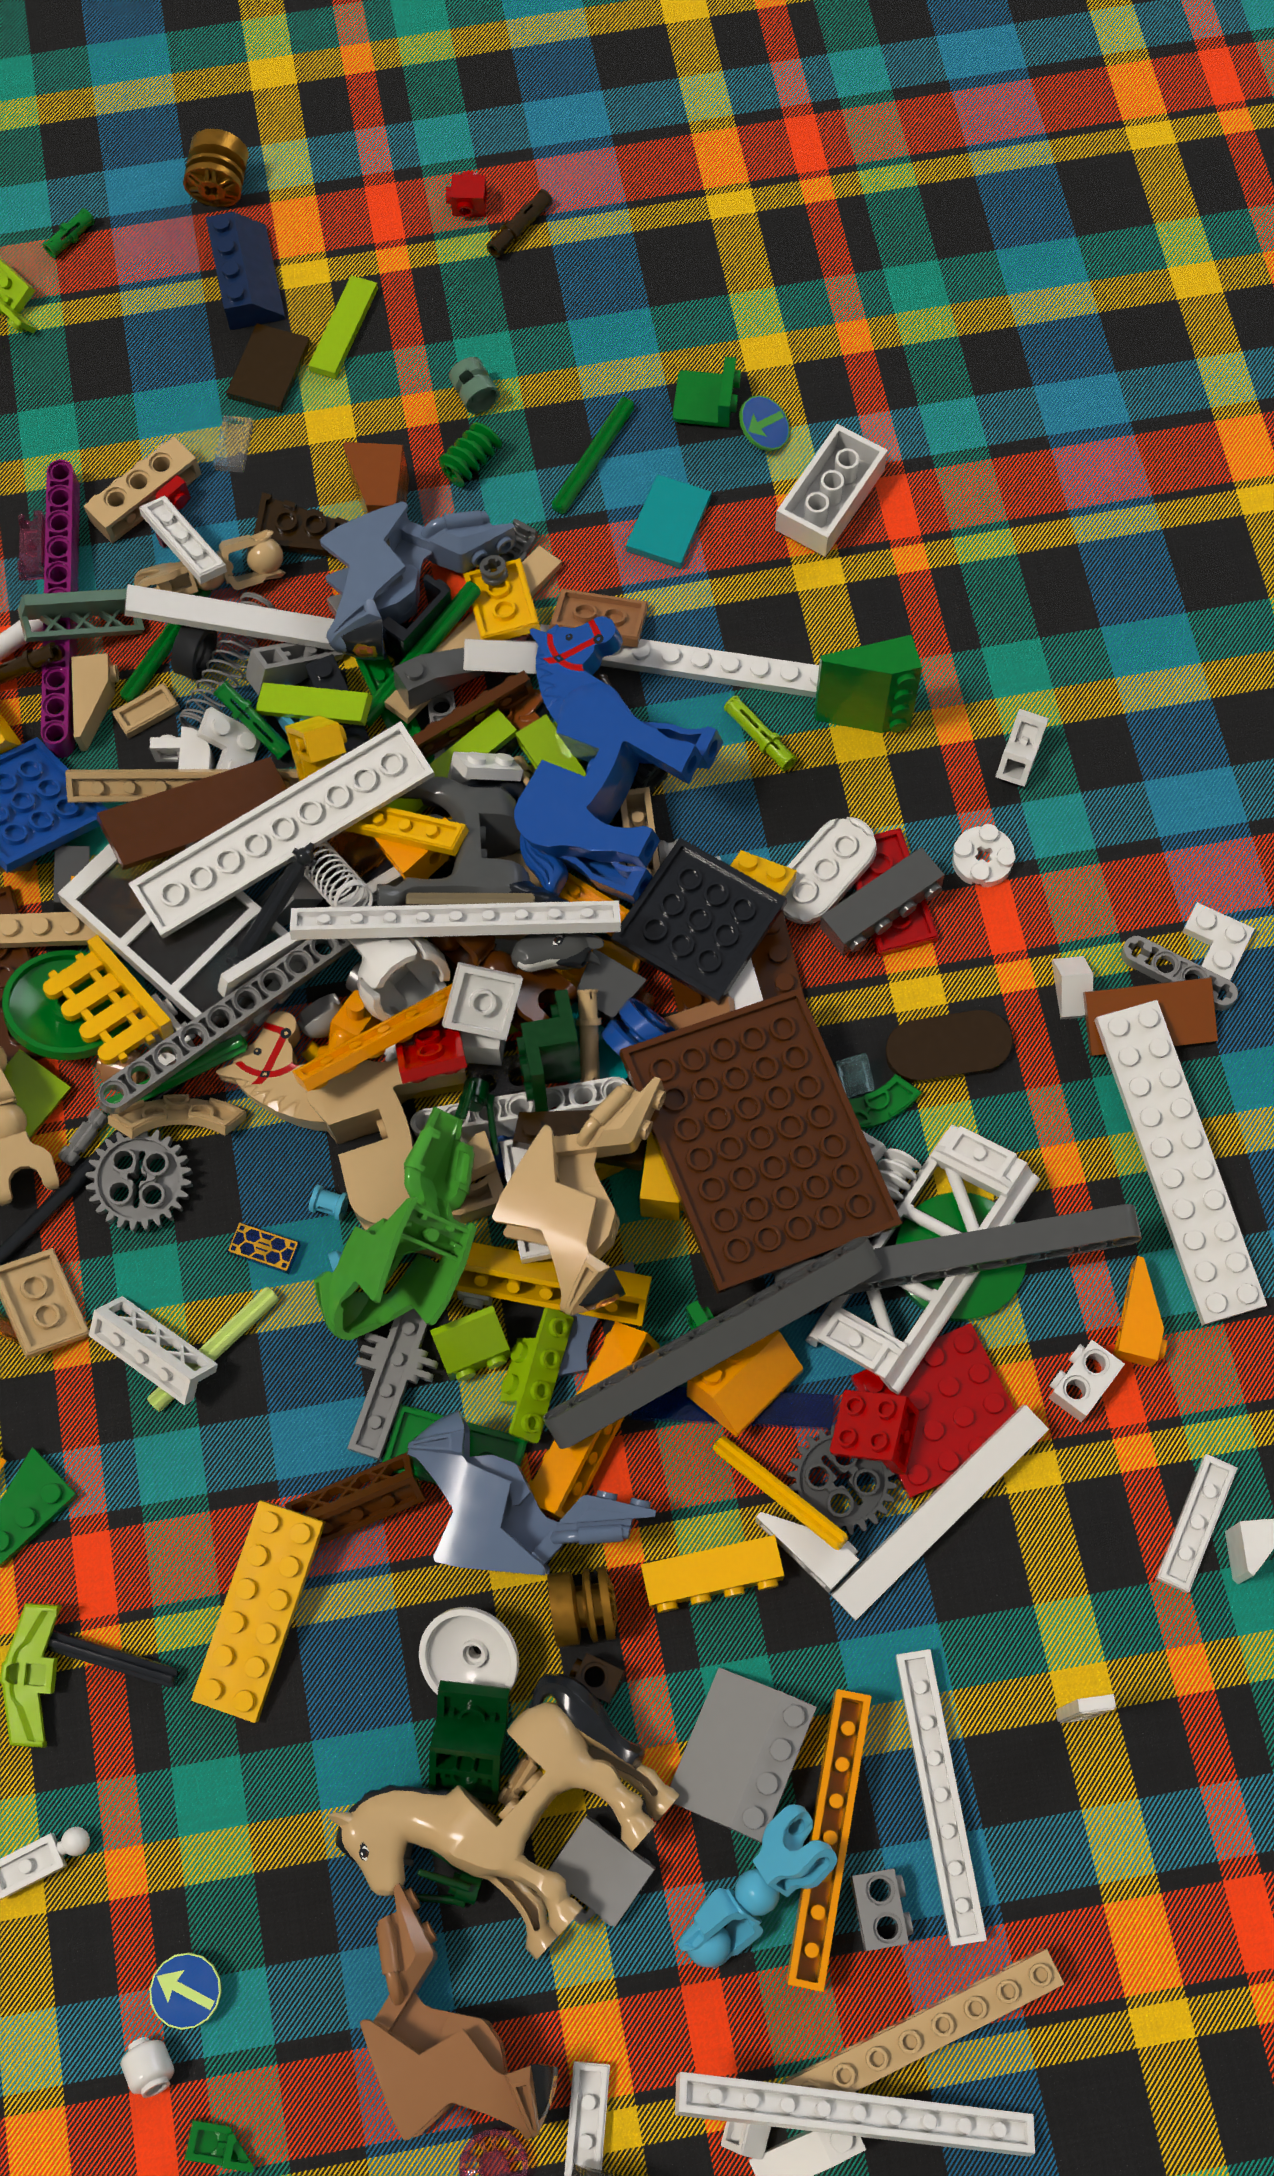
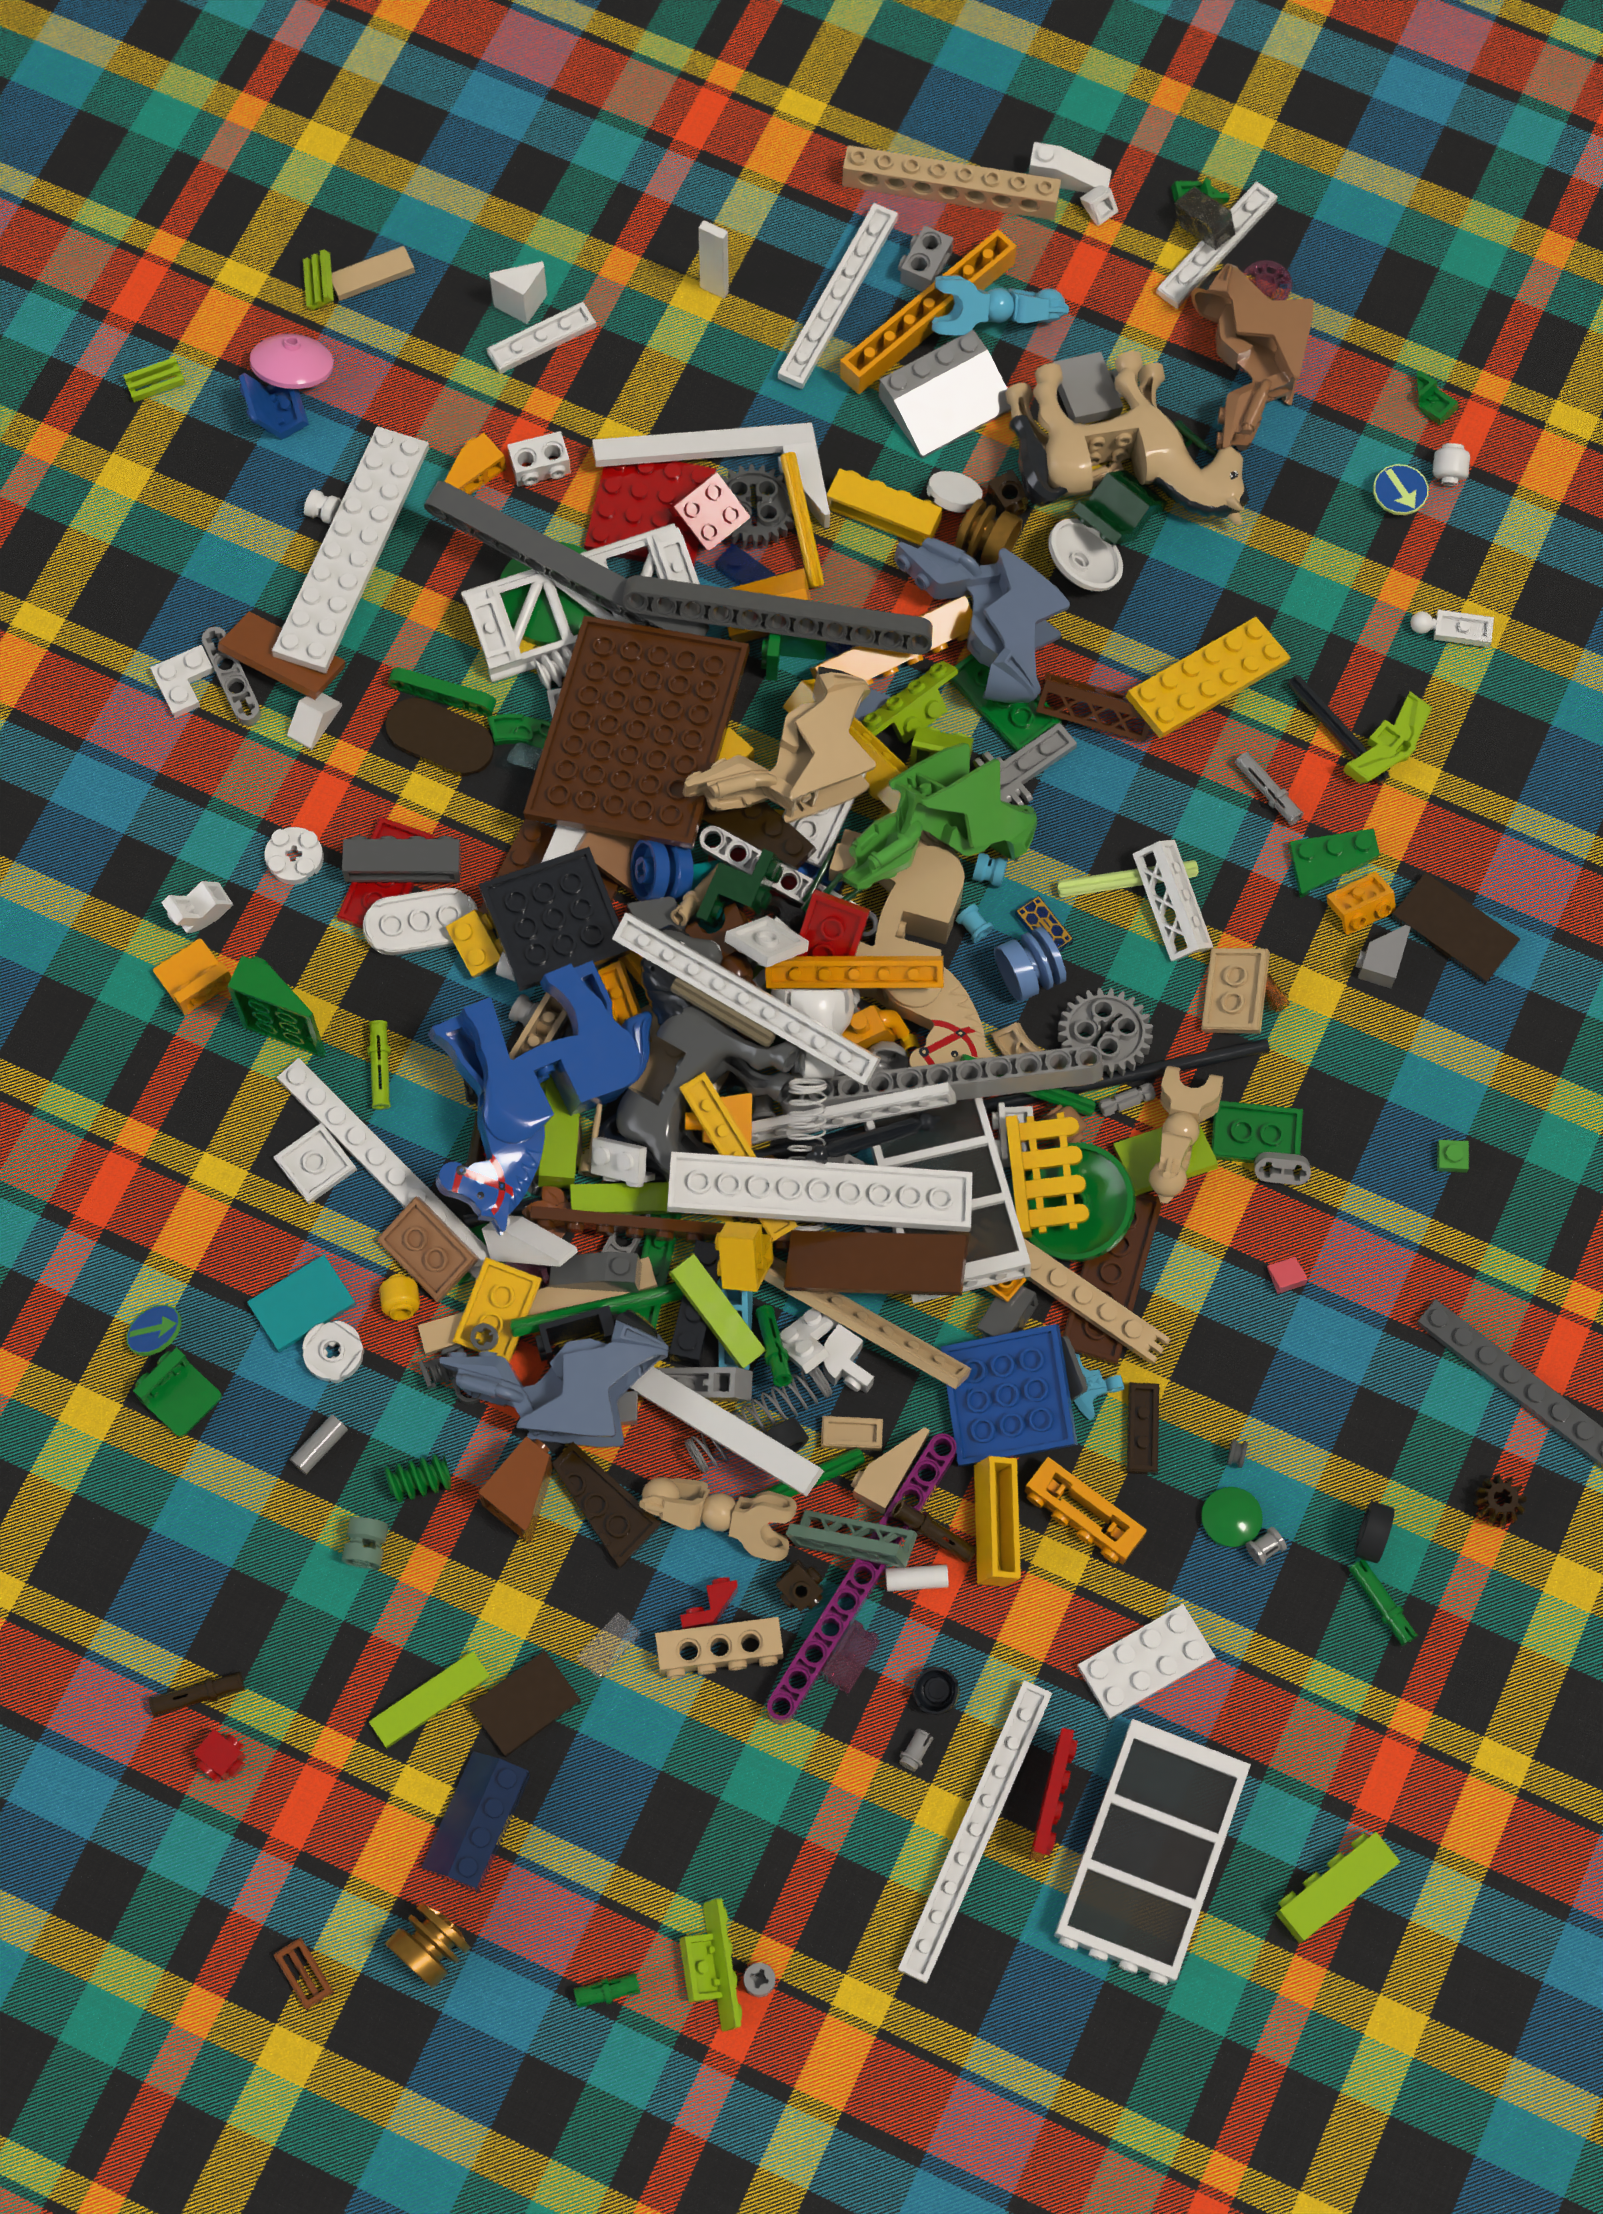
camera: 150 degrees left, 0 degrees up
(106, 564) = (799, 1575): none -> dark brown brick
(117, 1533) = (1277, 797): none -> light grey pin
(183, 539) = (722, 1542): white tile -> none
(245, 1187) = (1031, 963): none -> medium blue wheel
(297, 121) = (318, 1997): none -> dark orange tile
(568, 432) = (318, 1444): none -> light grey piece
(592, 455) = (314, 1410): green axle -> none
(592, 568) = (399, 1297): none -> yellow head
(613, 516) = (334, 1368): none -> white plate
(653, 1640) = (953, 491): none -> white tile
(748, 627) = (315, 1163): none -> white tile
(831, 490) = (153, 1224): white brick -> none
(854, 2114) = (1029, 157): white plate -> none
(975, 698) = (192, 976): none -> light orange bracket
(980, 1085) = (442, 691): none -> green beam
(1245, 1184) = (321, 506): none -> white wheel

